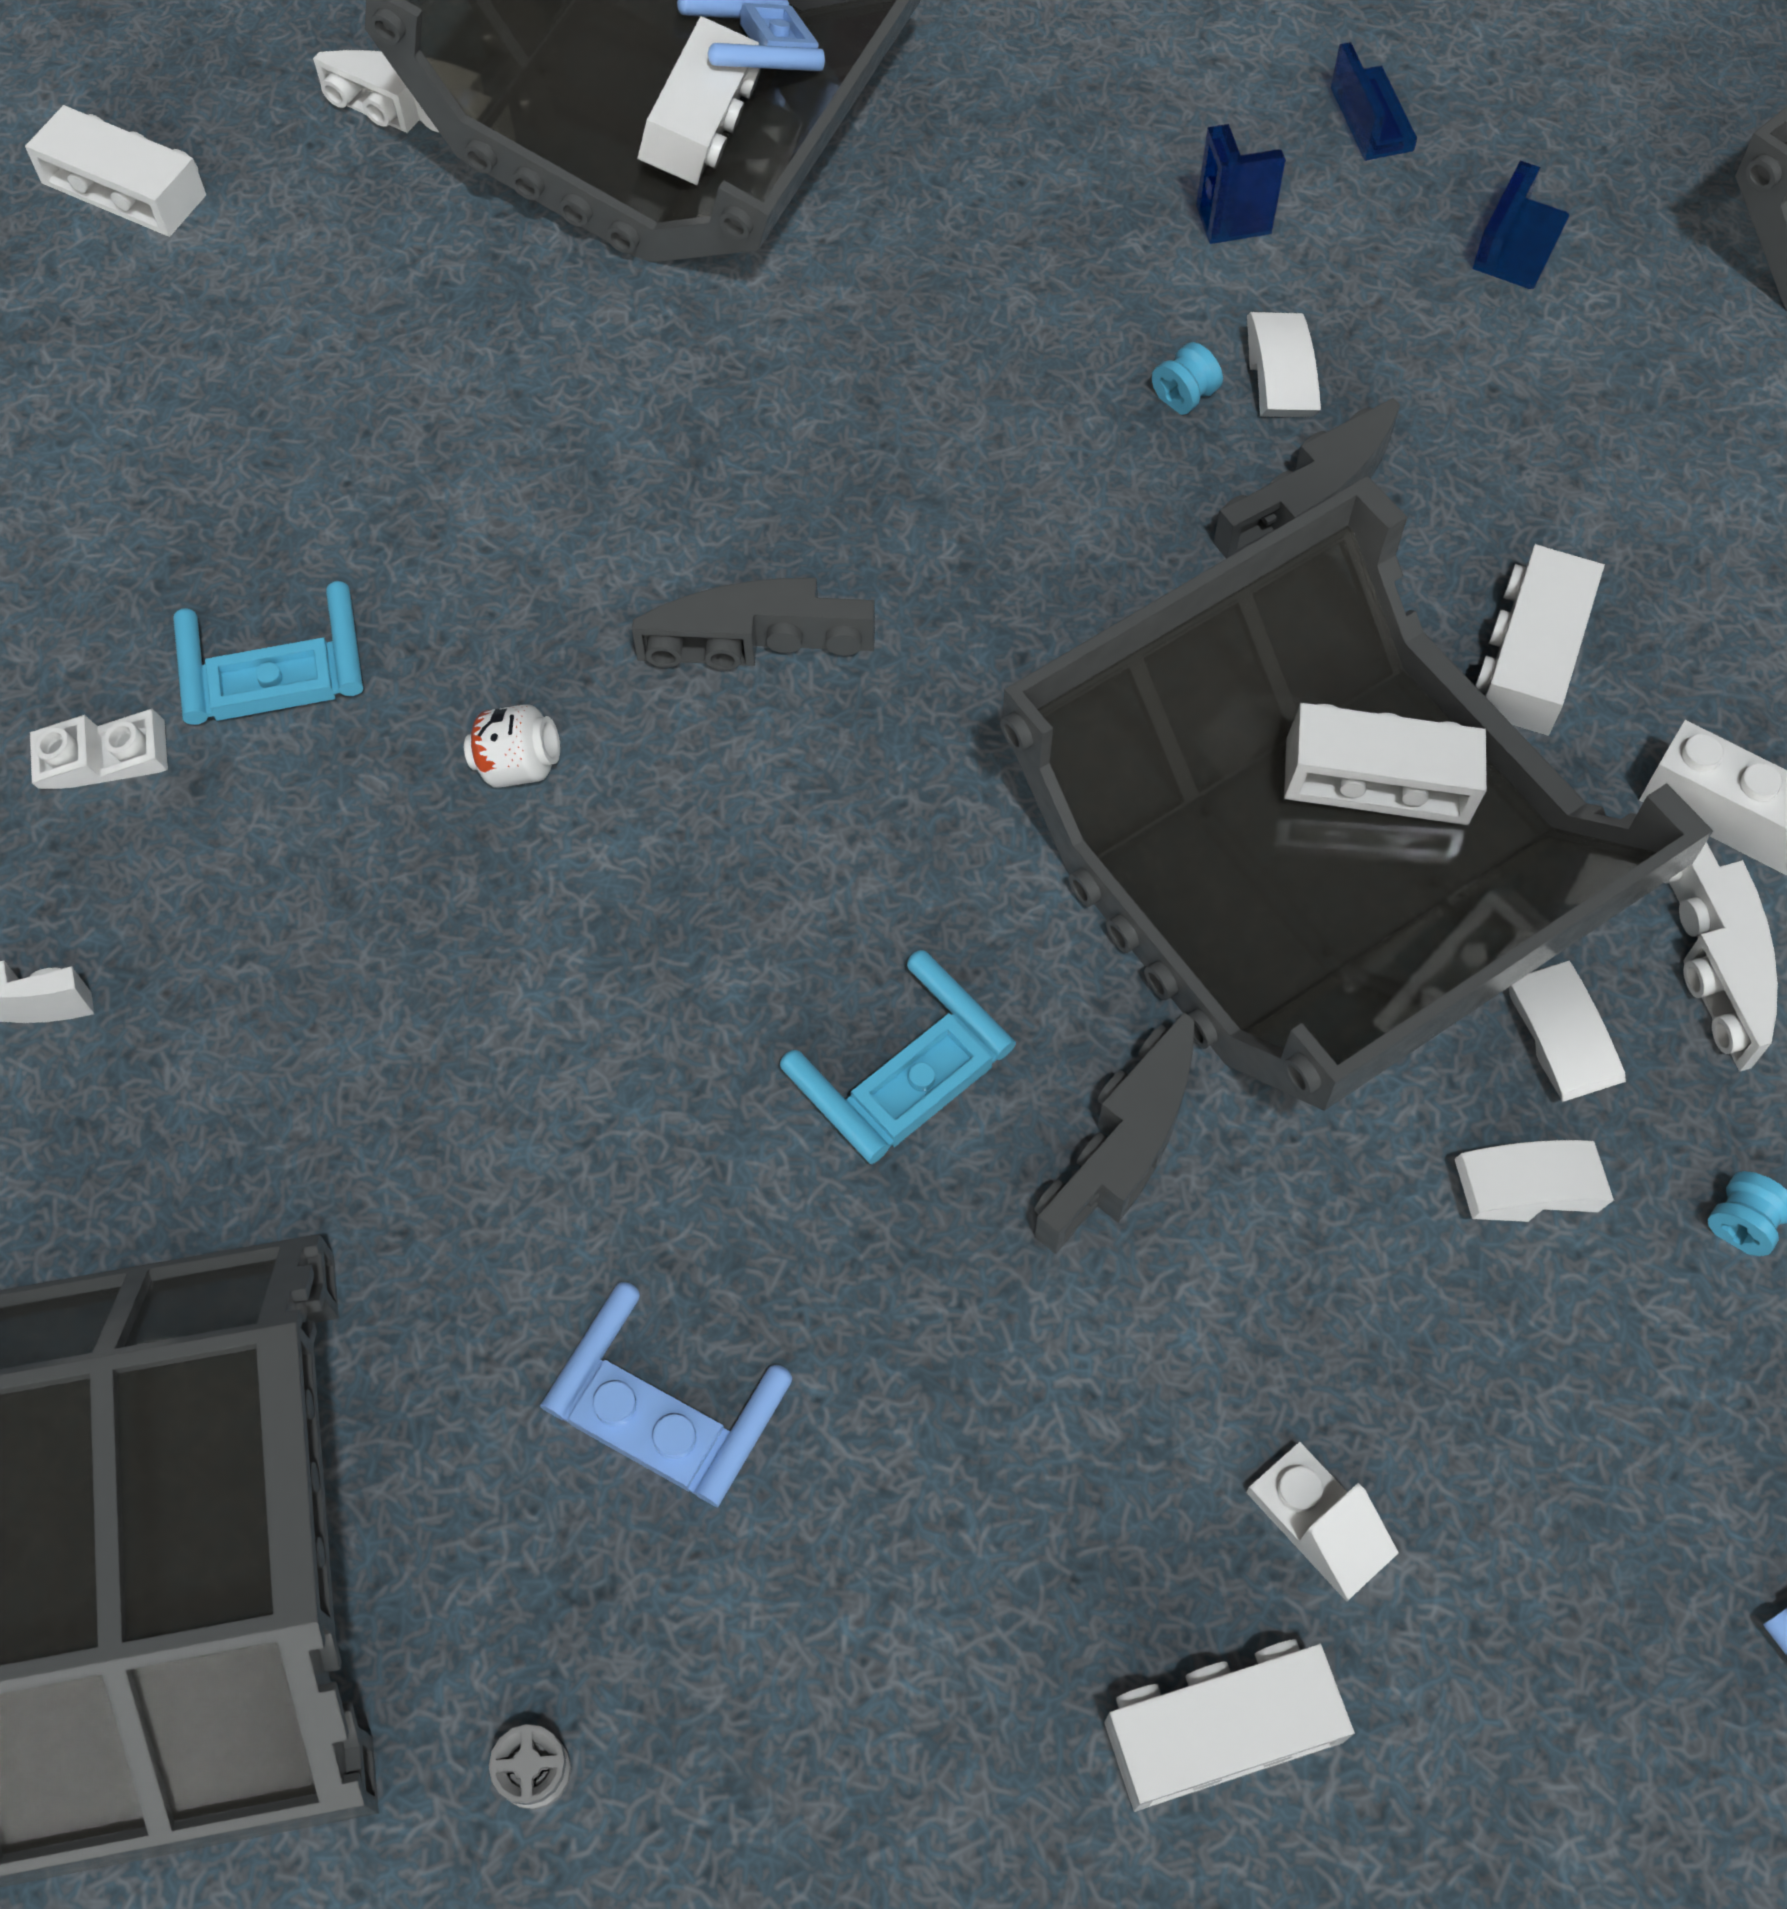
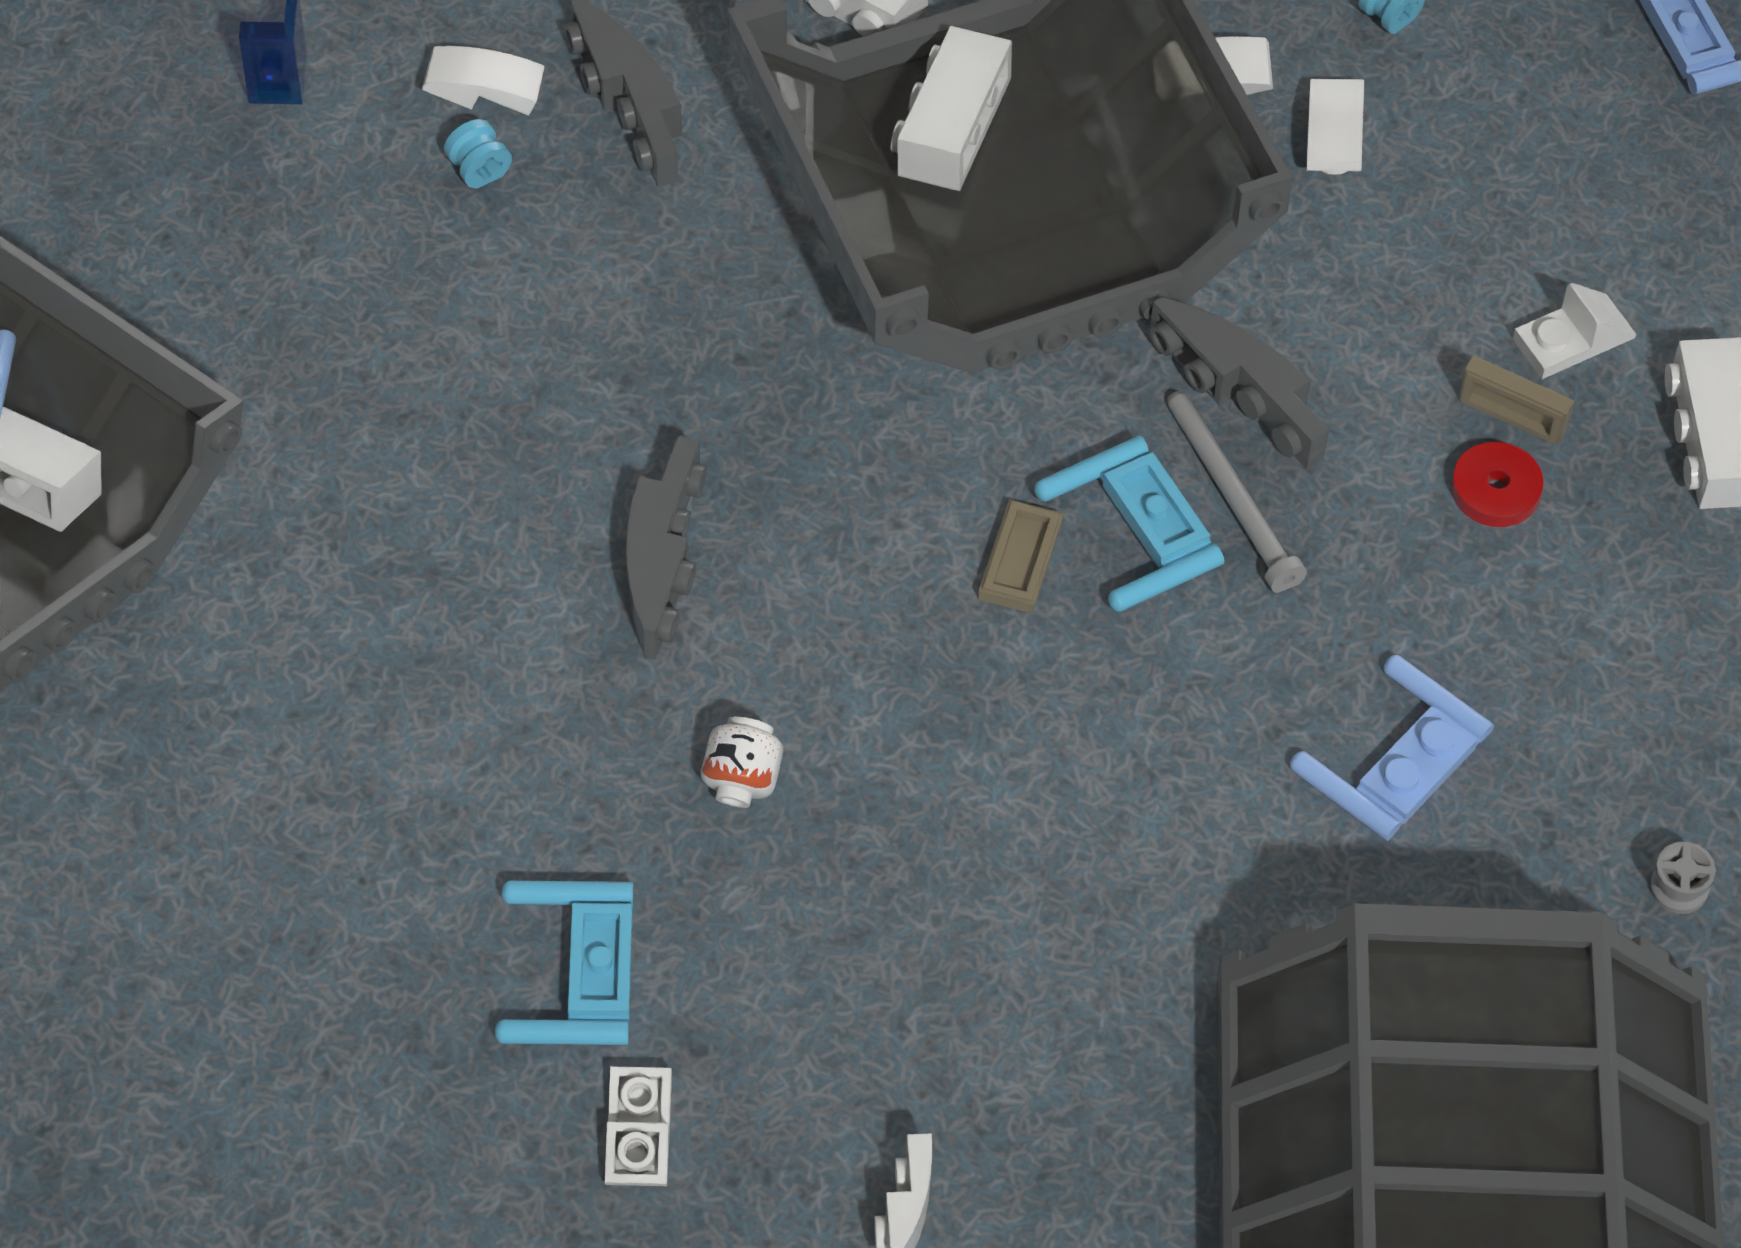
camera: 80 degrees left, 5 degrees down
(835, 959) = (1021, 556): none -> dark tan tile
(877, 1228) = (1283, 570): none -> light grey bar
(1059, 1489) = (1493, 505): none -> red piece
(1184, 1456) = (1515, 400): none -> dark tan tile

